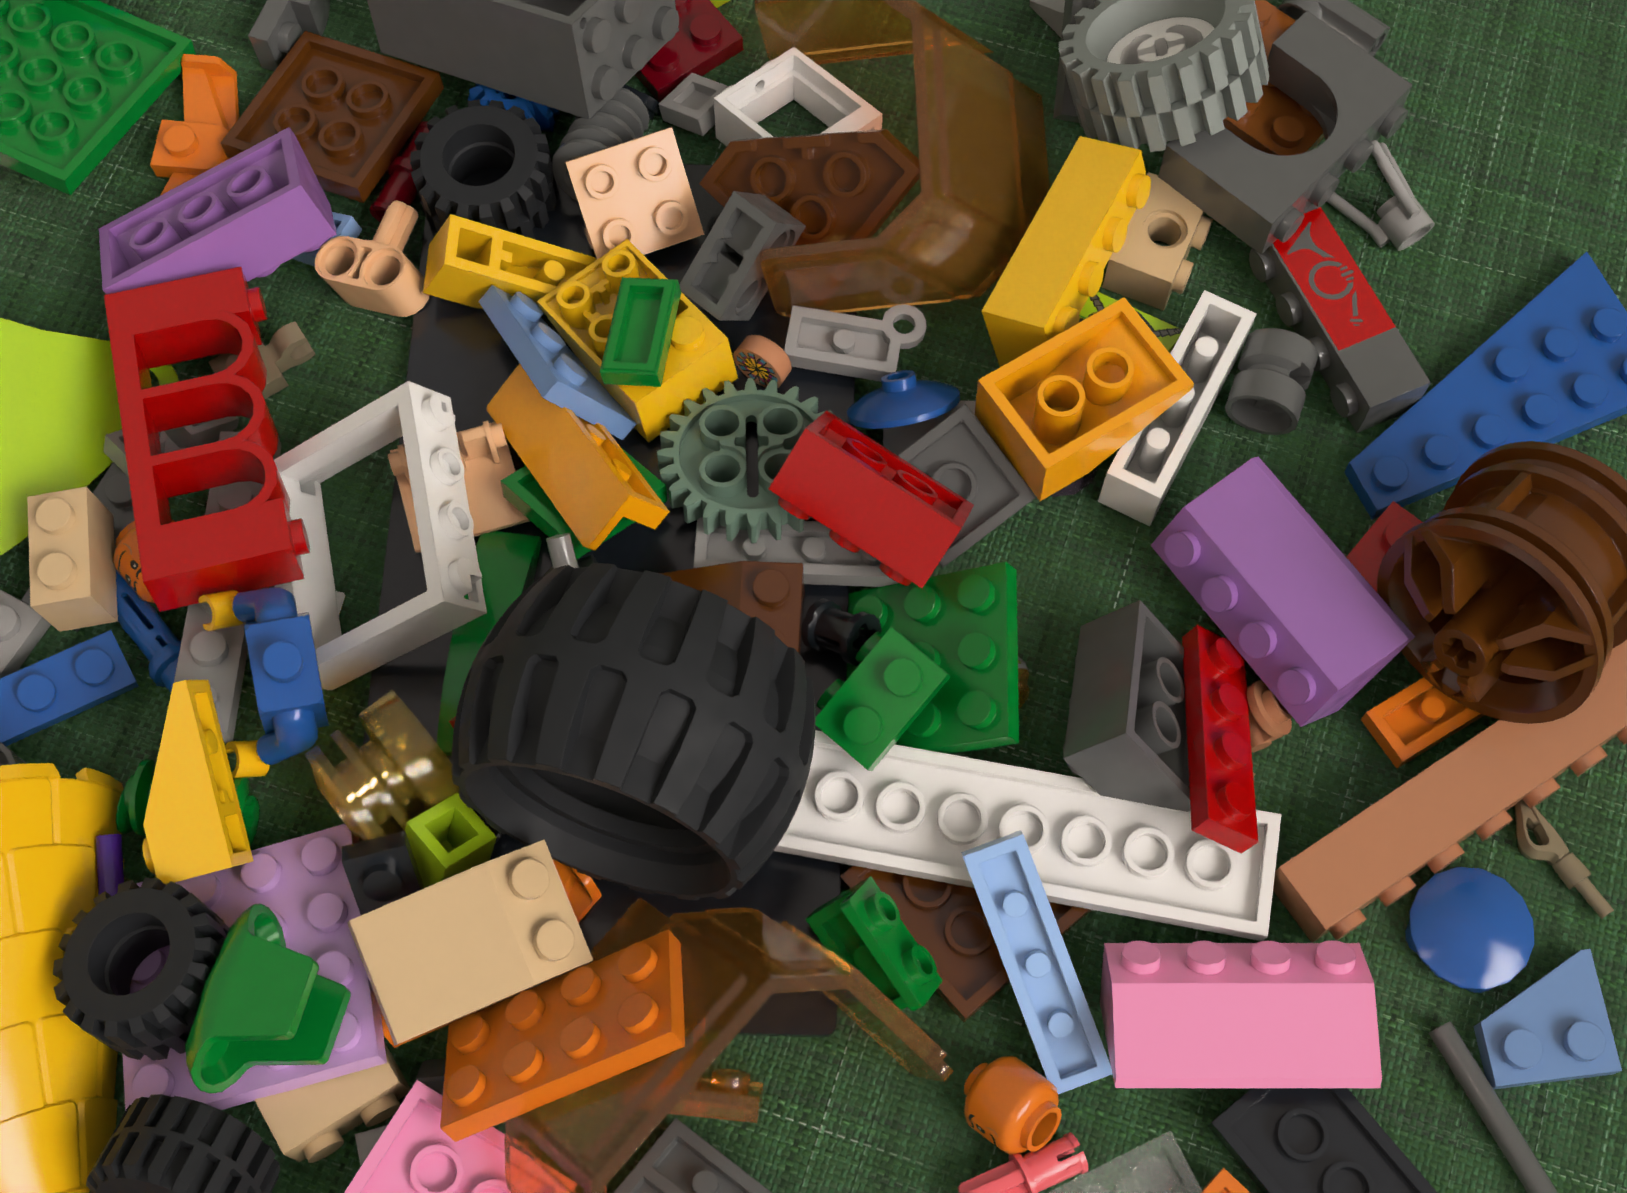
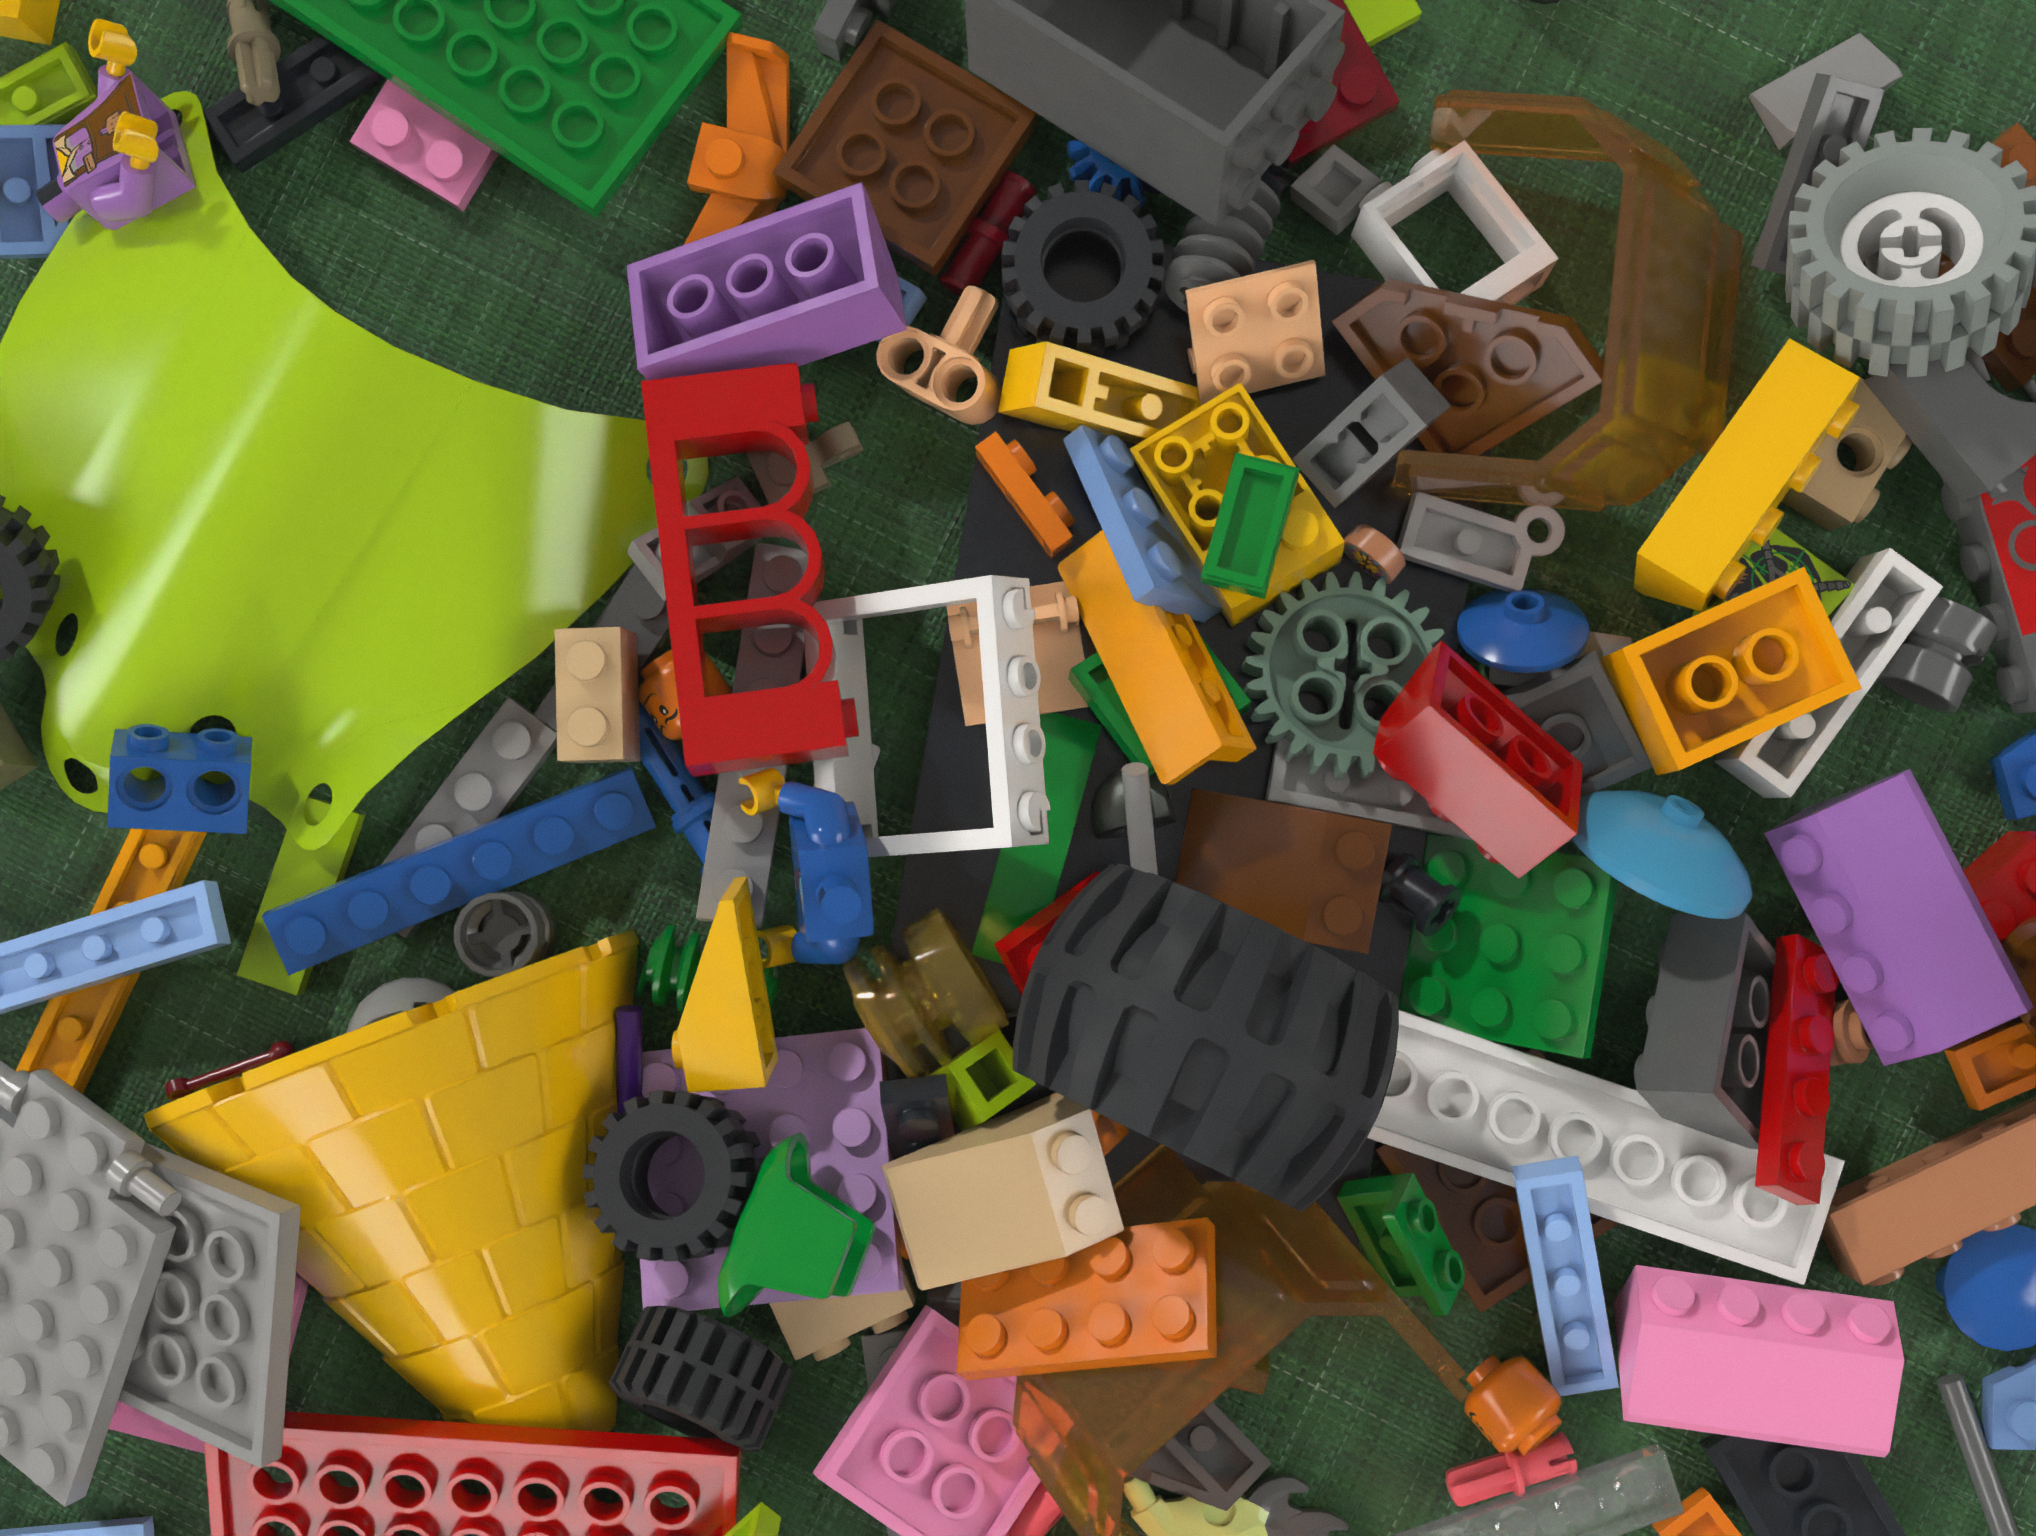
camera: 10 degrees right, 20 degrees up
(440, 341) = (1010, 470): none -> orange plate
(879, 697) = (1454, 985): green bracket -> none
(1055, 548) = (1664, 851): none -> dark azure dish

